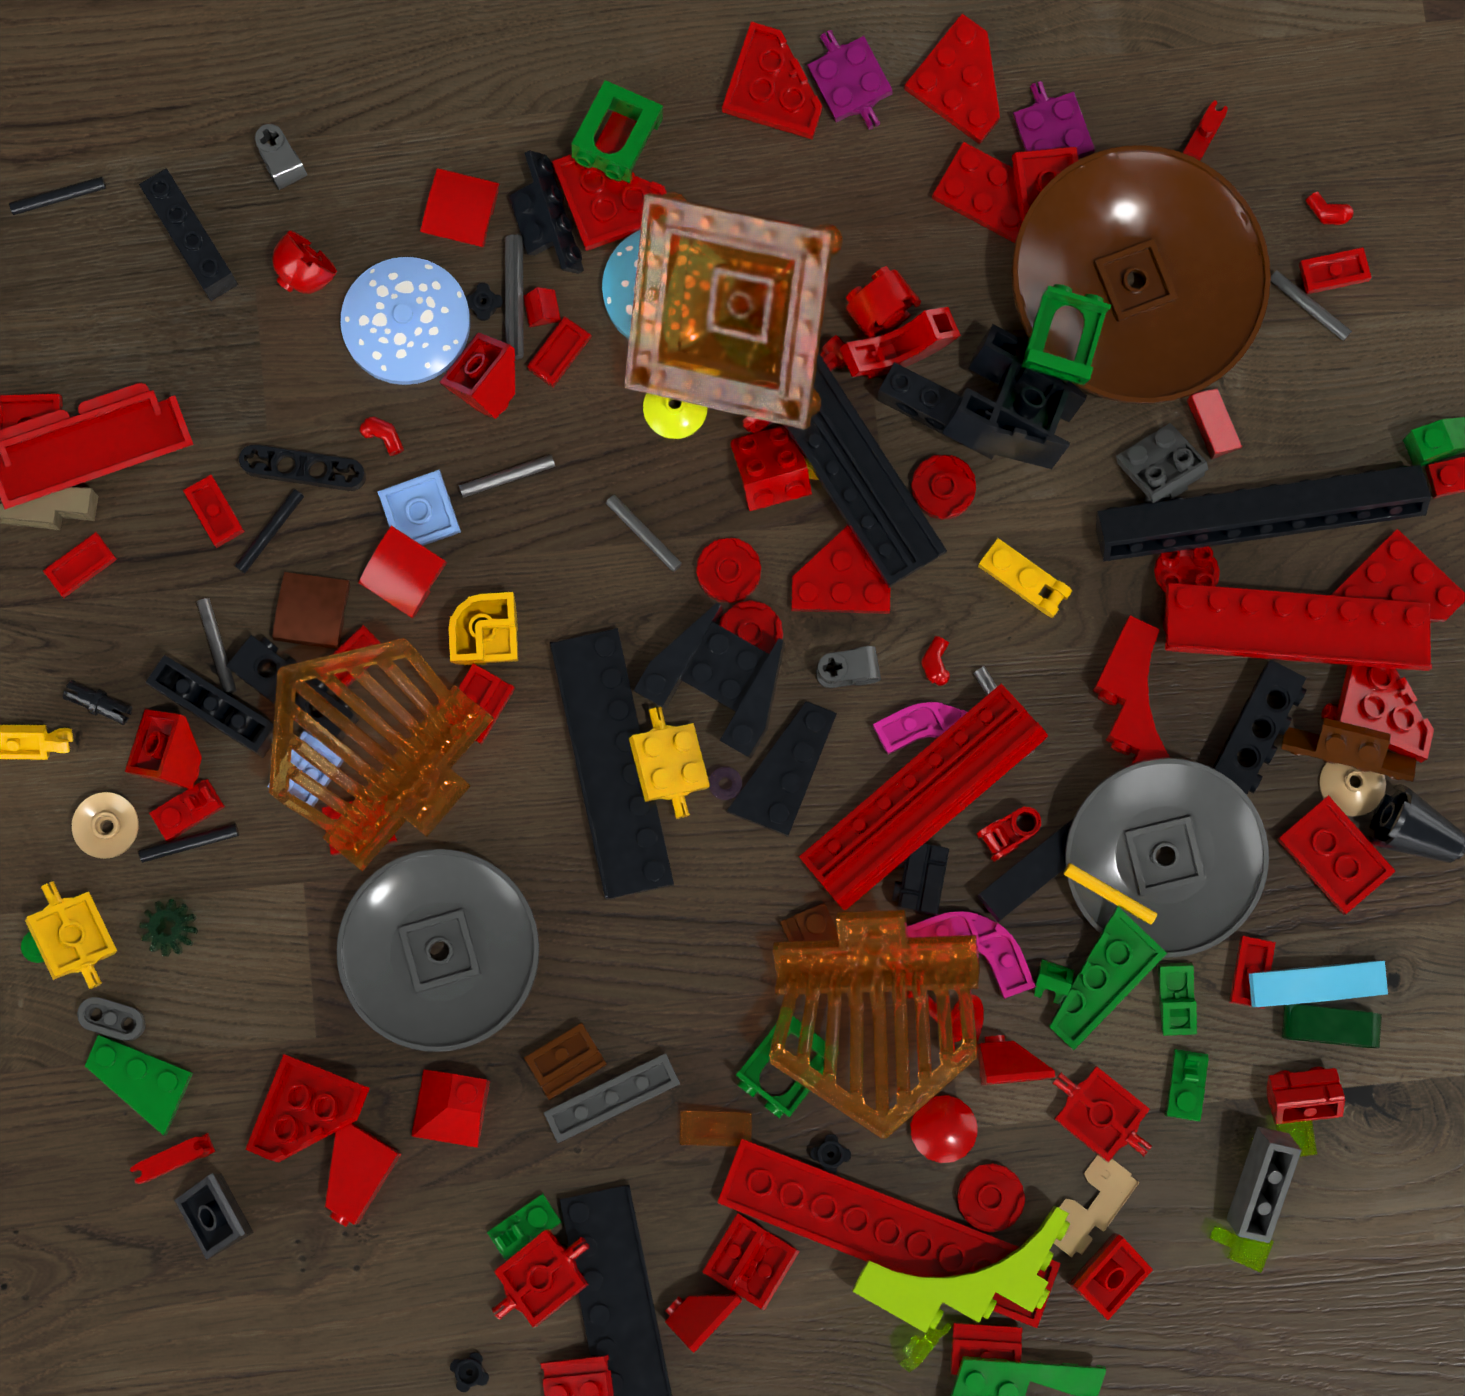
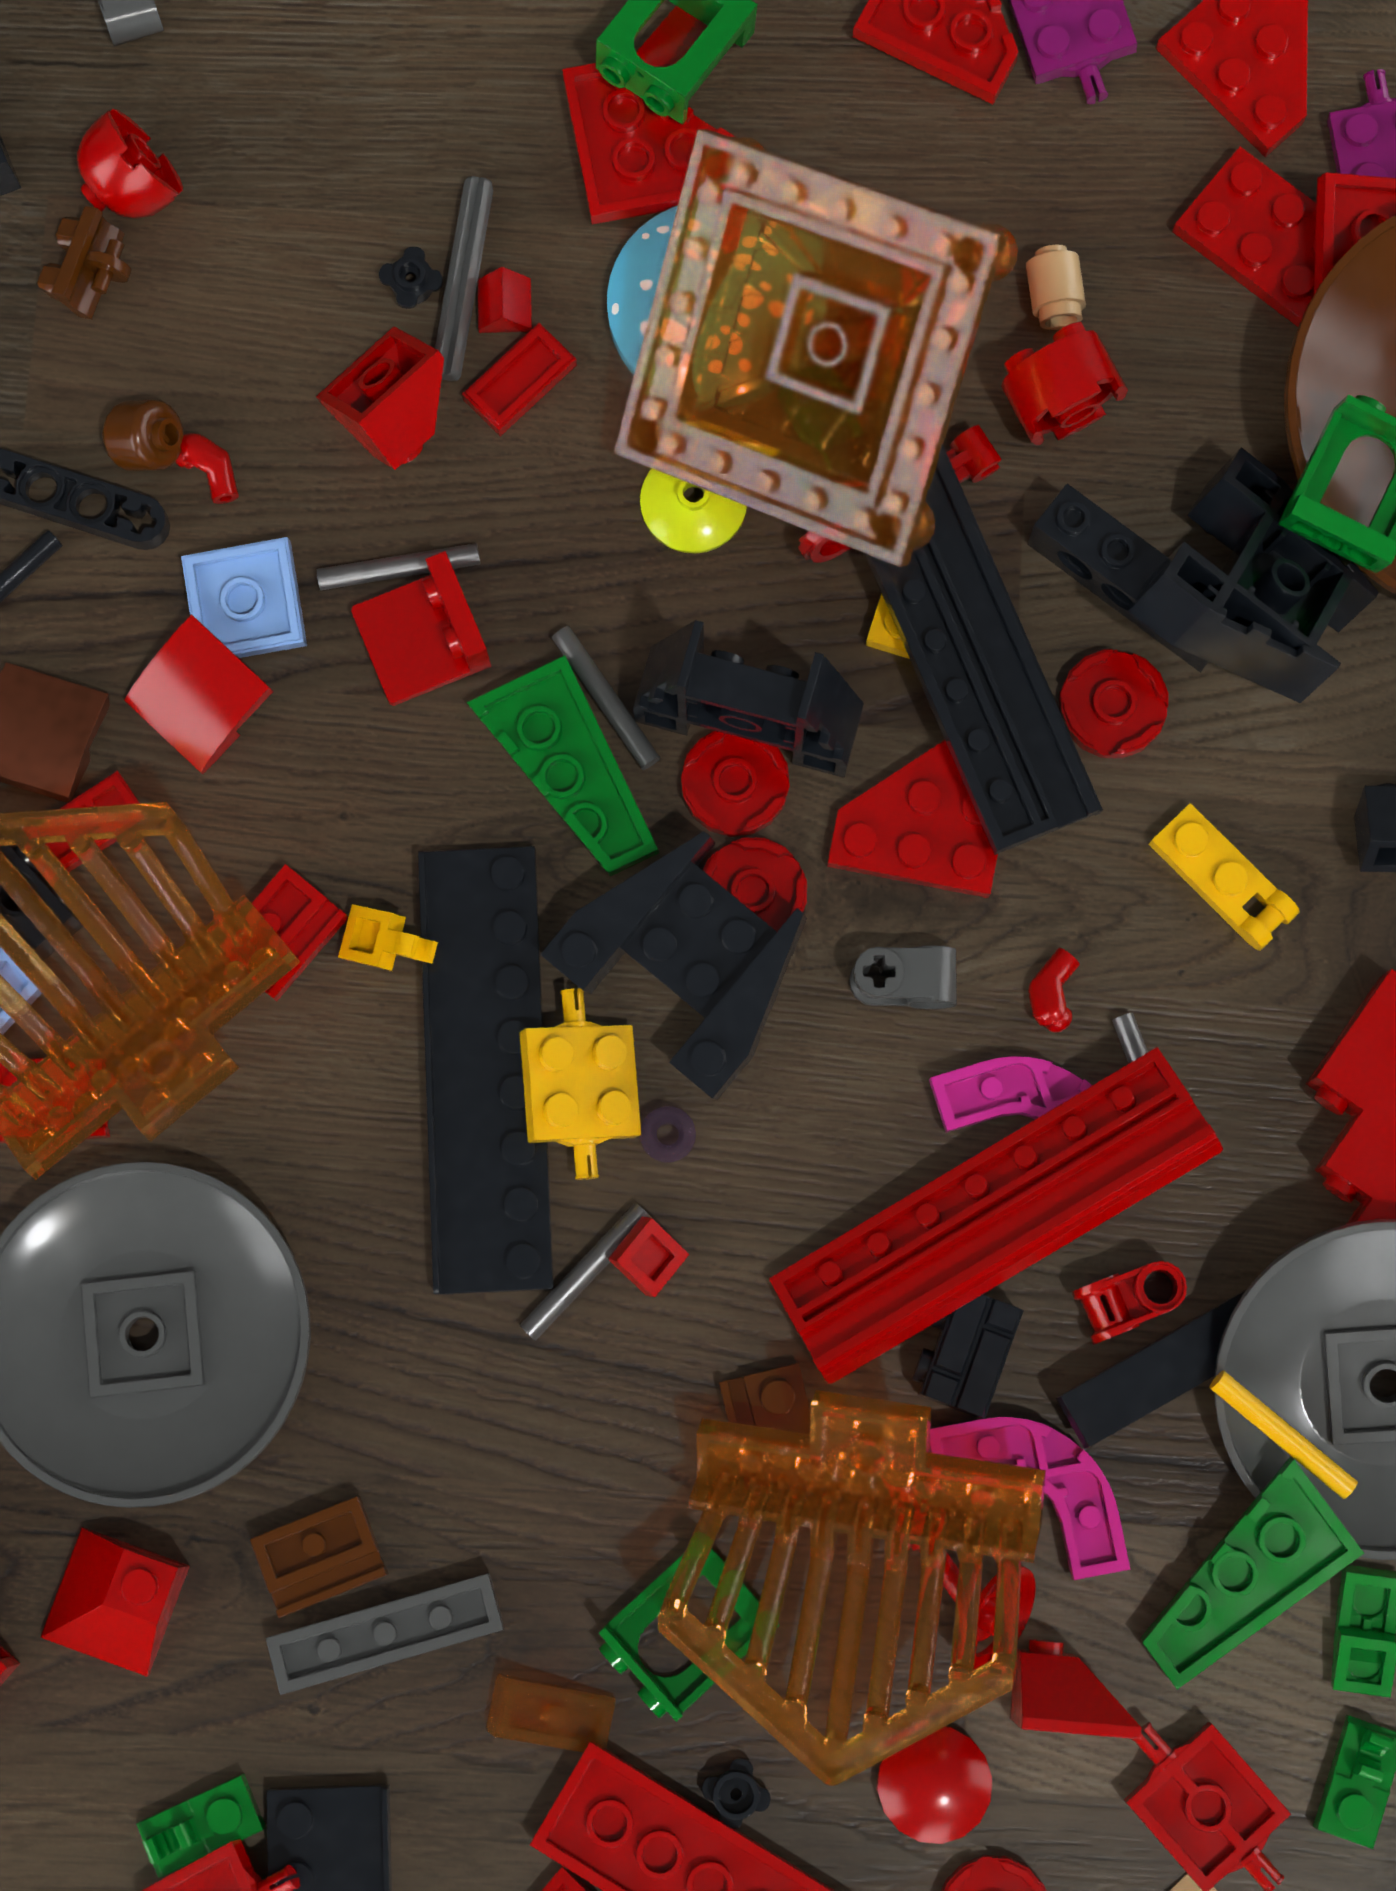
camera: 10 degrees right, 0 degrees up
(290, 325) = (89, 264): none -> reddish brown hips
(341, 423) = (143, 435): none -> reddish brown head
(405, 320) = (279, 288): light blue dish -> none
(460, 207) = (400, 120): red slope -> none
(484, 630) = (313, 812): yellow brick -> none
(528, 513) = (421, 634): none -> red bracket
(535, 697) = (377, 937): none -> yellow plate
(543, 216) = (533, 157): black bracket -> none
(626, 571) = (563, 752): none -> green wing
(691, 871) = (581, 1275): none -> flat silver bar
(726, 855) = (648, 1256): none -> red plate
(730, 523) = (767, 706): none -> black wedge
(770, 468) = (837, 614): red bracket -> none
(783, 777) = (765, 1141): black wing -> none
(868, 244) = (1056, 287): none -> tan brick
(904, 346) = (1091, 460): red arch -> none
(1053, 978) = (1164, 1561): green tile -> none

